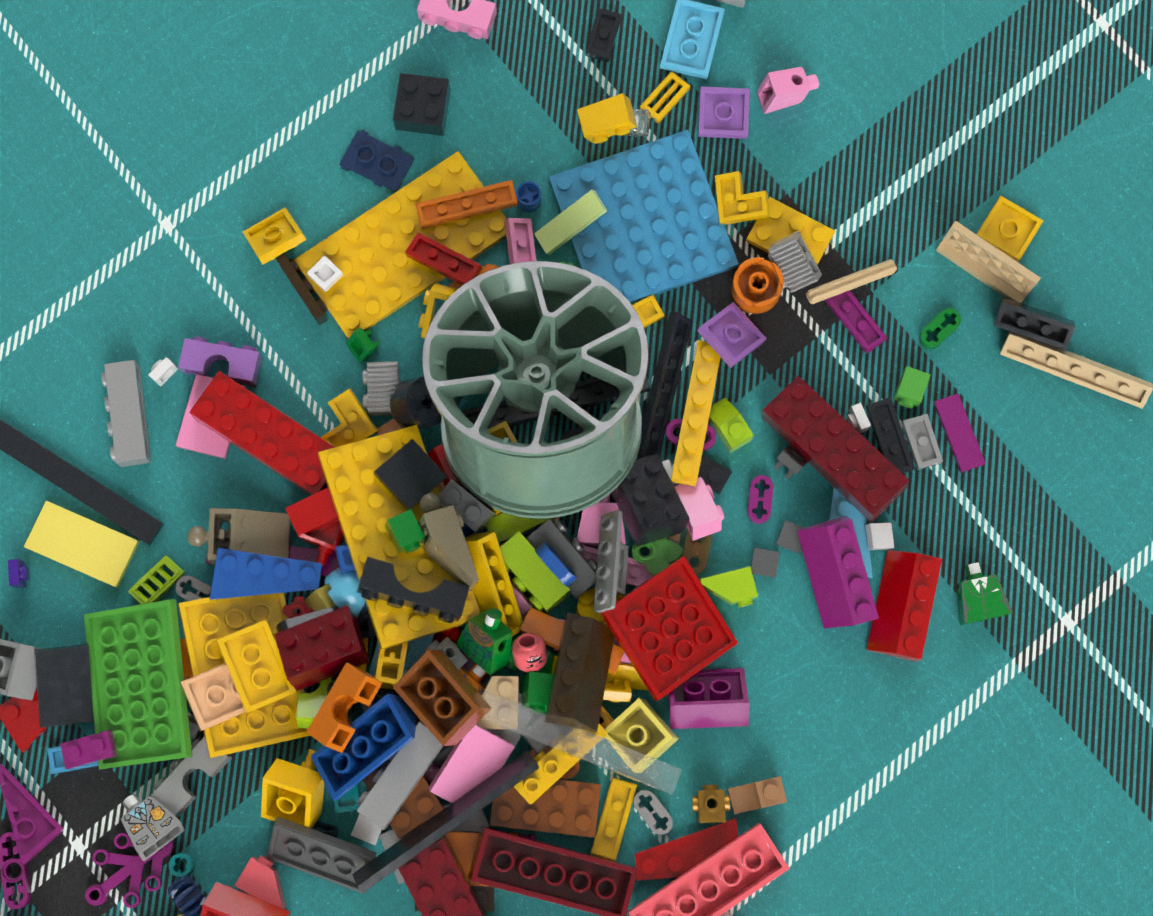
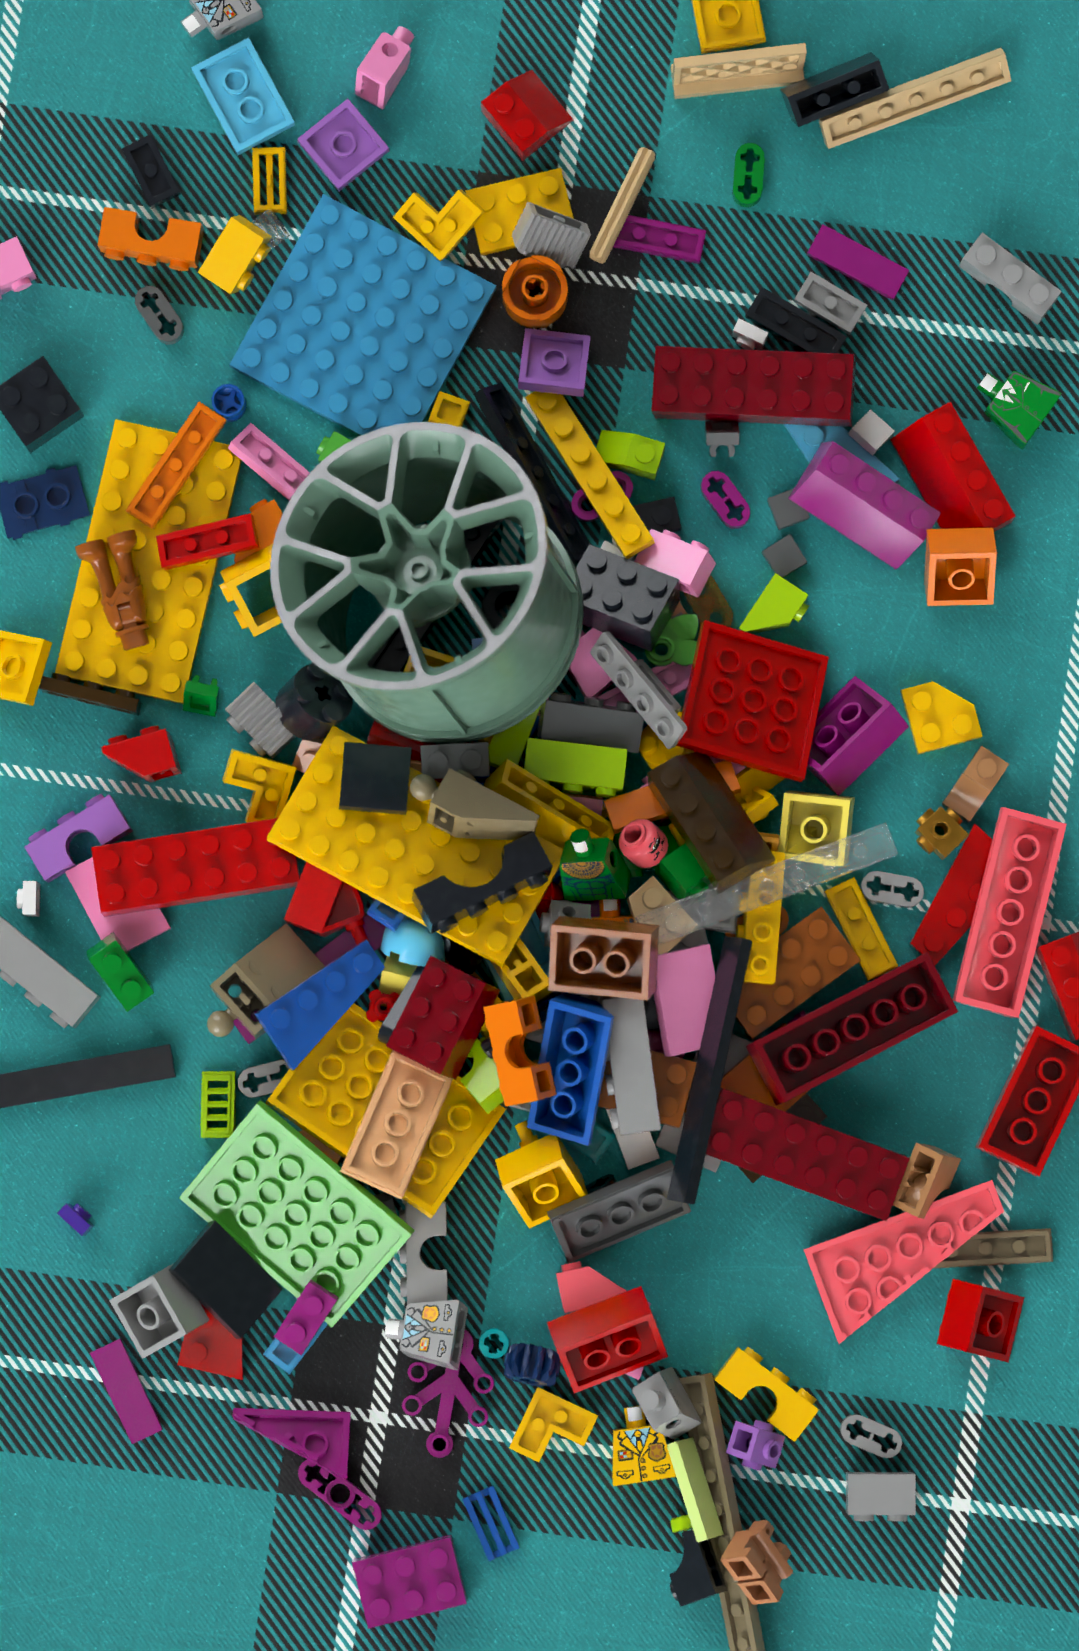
camera: 40 degrees left, 5 degrees up
(81, 544) = (109, 1135): light yellow tile -> none
(171, 456) = (120, 971): none -> green brick
(255, 666) = (397, 1091): yellow plate -> none
(301, 350) = (147, 756): none -> red slope
(325, 273) = (102, 659): white plate -> none
(367, 252) = (122, 604): none -> dark orange piece
(405, 532) = (424, 836): green brick -> none
(541, 117) = (165, 311): none -> dark grey beam
(556, 563) = (592, 737): blue beam -> none
(570, 222) = (295, 391): yellowish green tile -> none
(580, 87) = (177, 247): none -> orange arch
(771, 736) = (939, 717): none -> yellow plate
(842, 183) = (525, 113): none -> red slope
(862, 659) = (960, 566): none -> orange brick
(911, 387) = (773, 259): bright green brick -> none
(1039, 505) = (996, 266): none -> light grey arch

